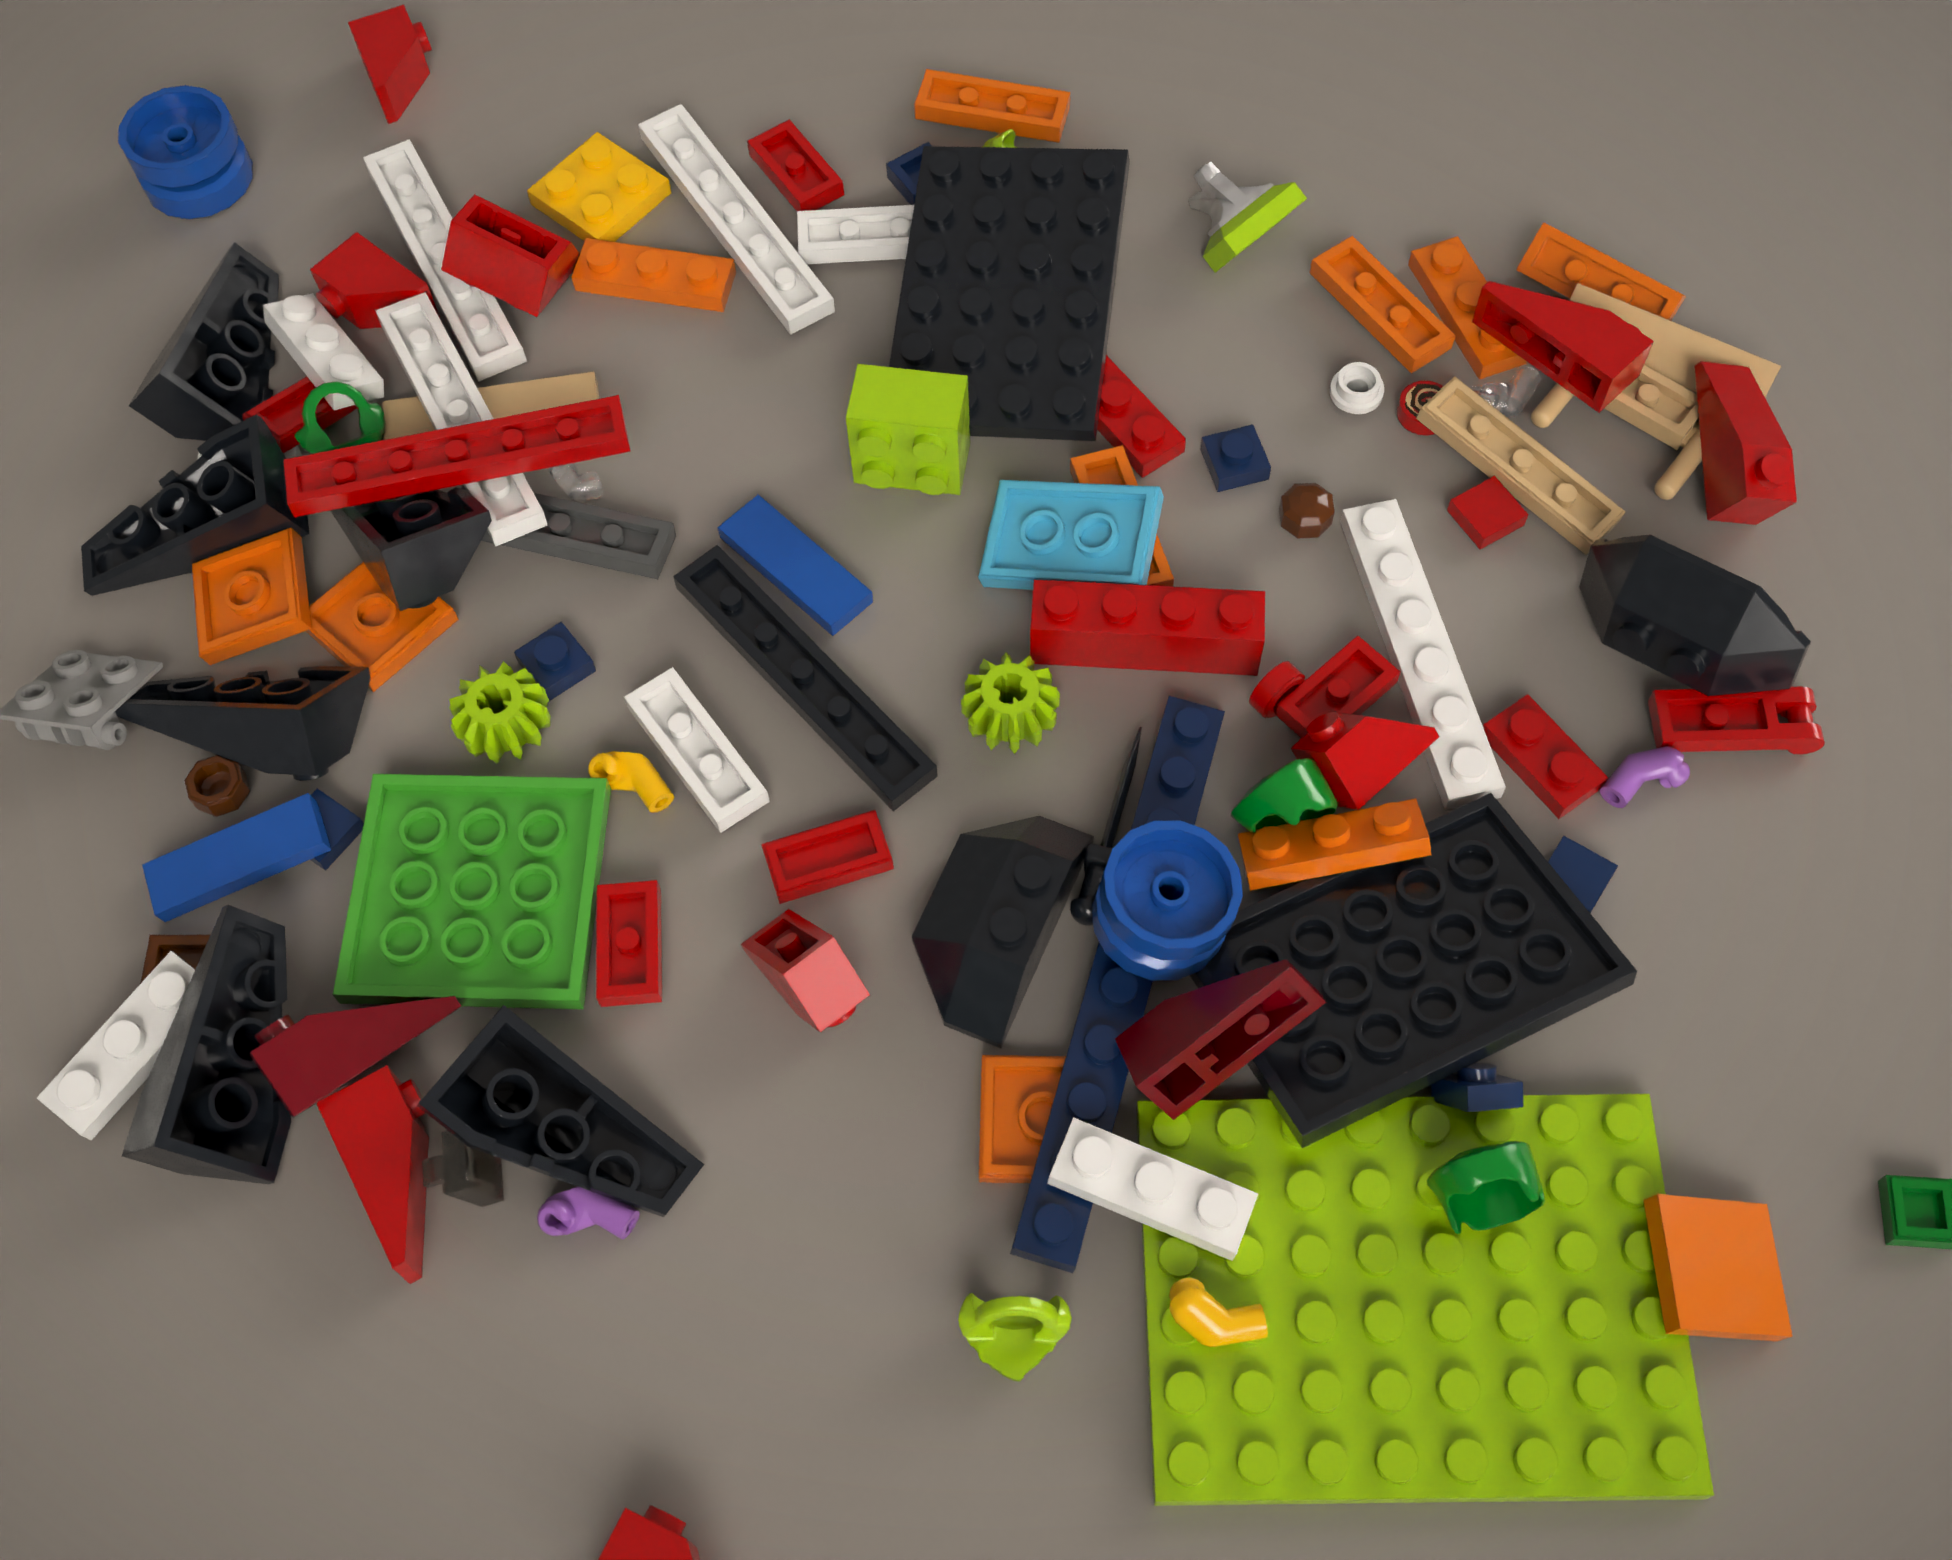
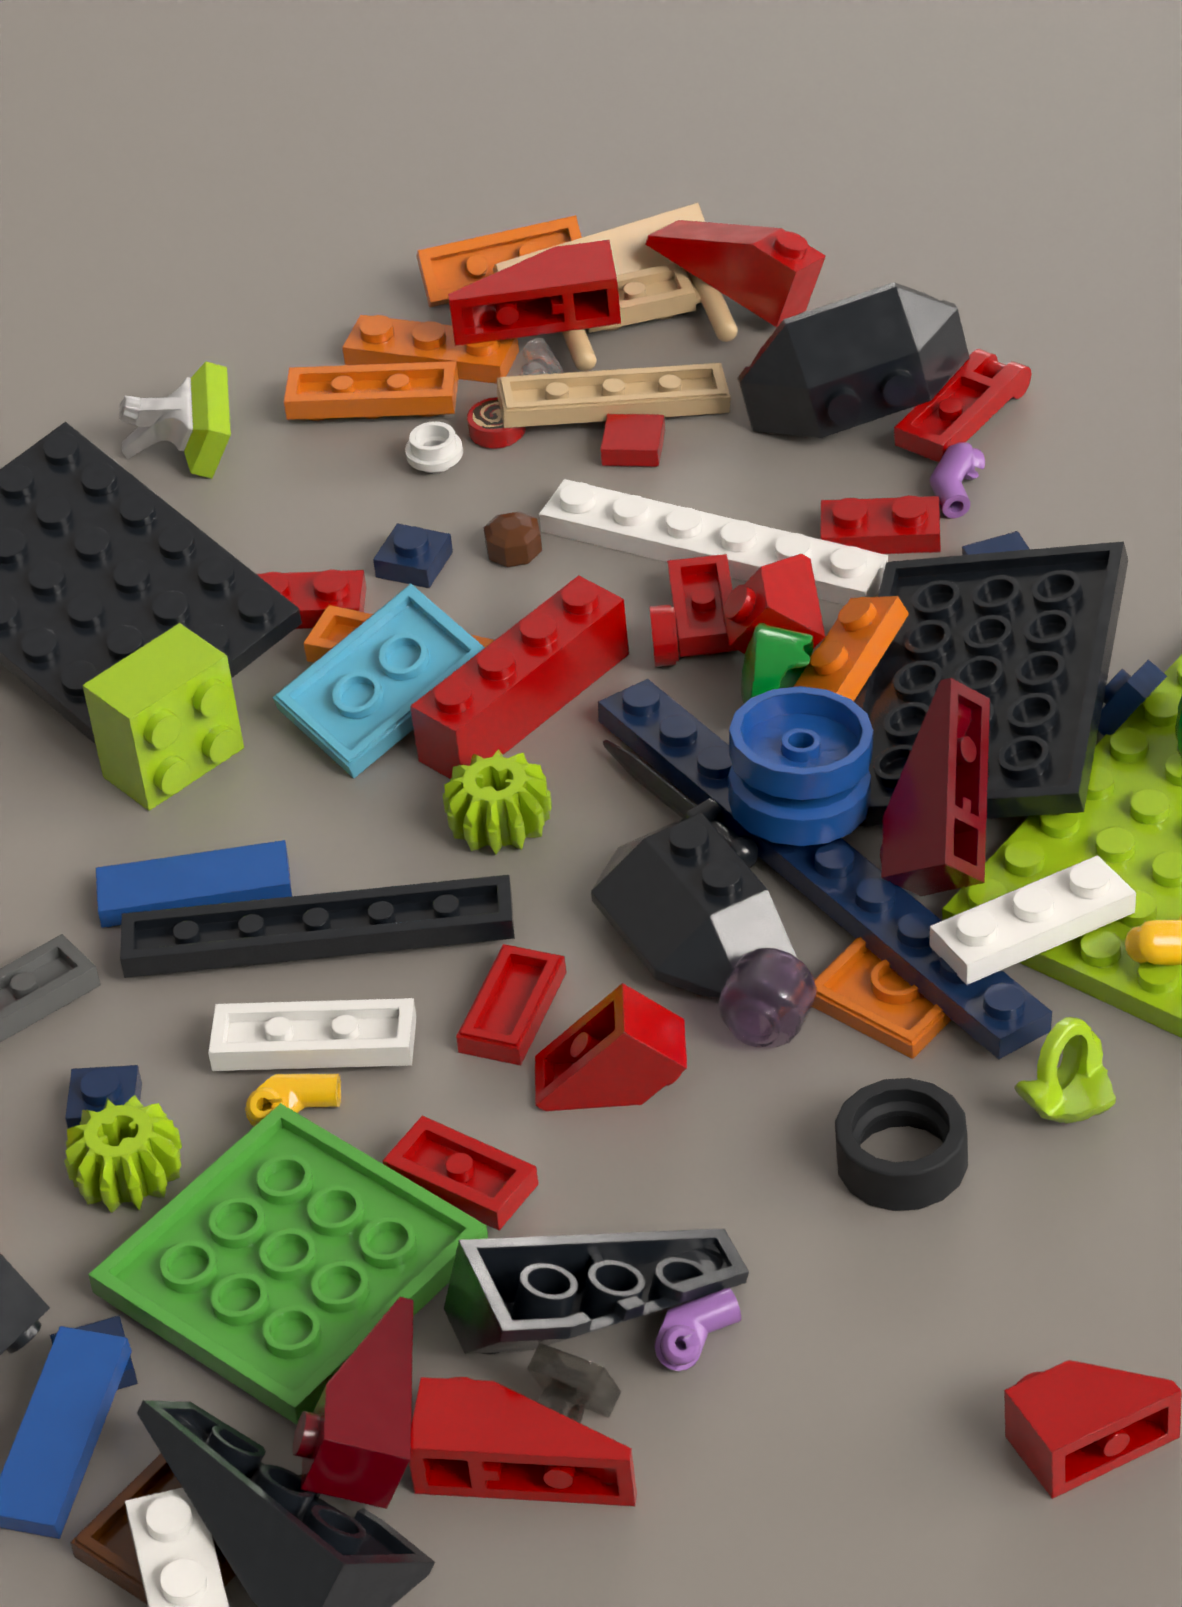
camera: 50 degrees left, 20 degrees down
(849, 1193) = (904, 1183): none -> black tyre
(938, 1038) = (767, 997): none -> clear purple head

